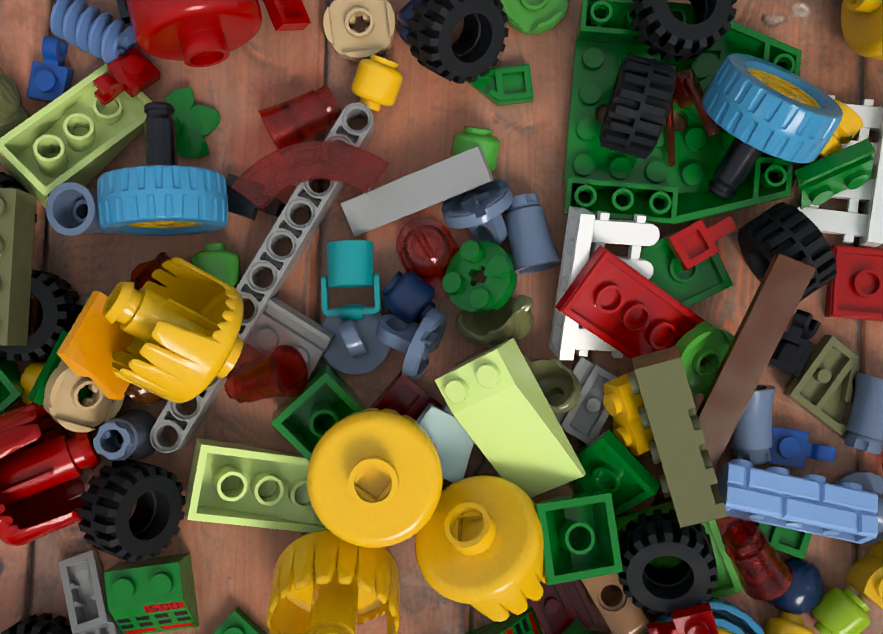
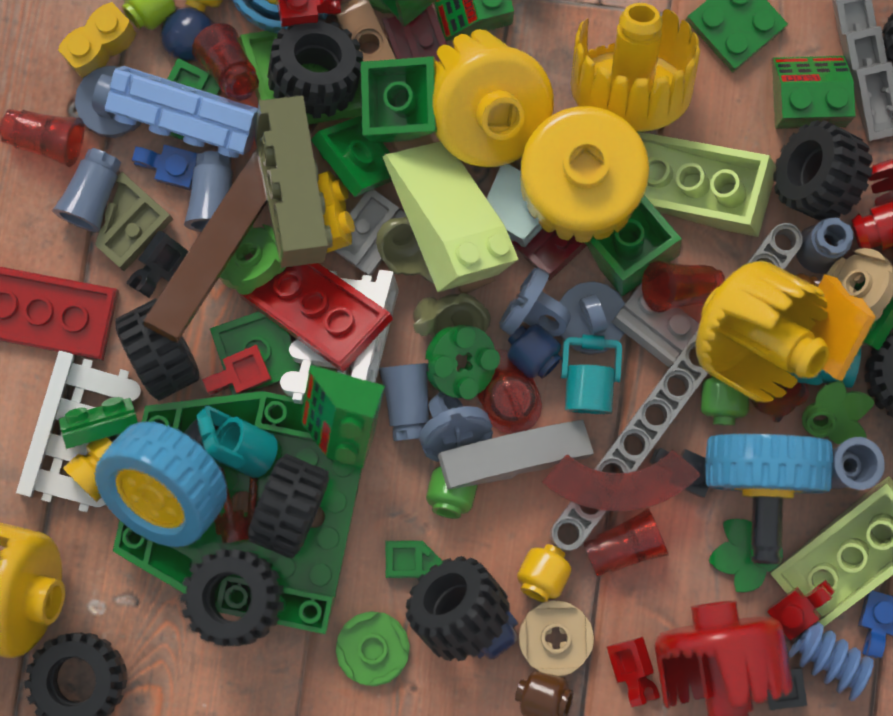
camera: 175 degrees left, 5 degrees down
(103, 266) = (842, 413): none -> bright green plate
(596, 197) = (341, 414): none -> green slope
(696, 164) = (237, 442): none -> teal piece

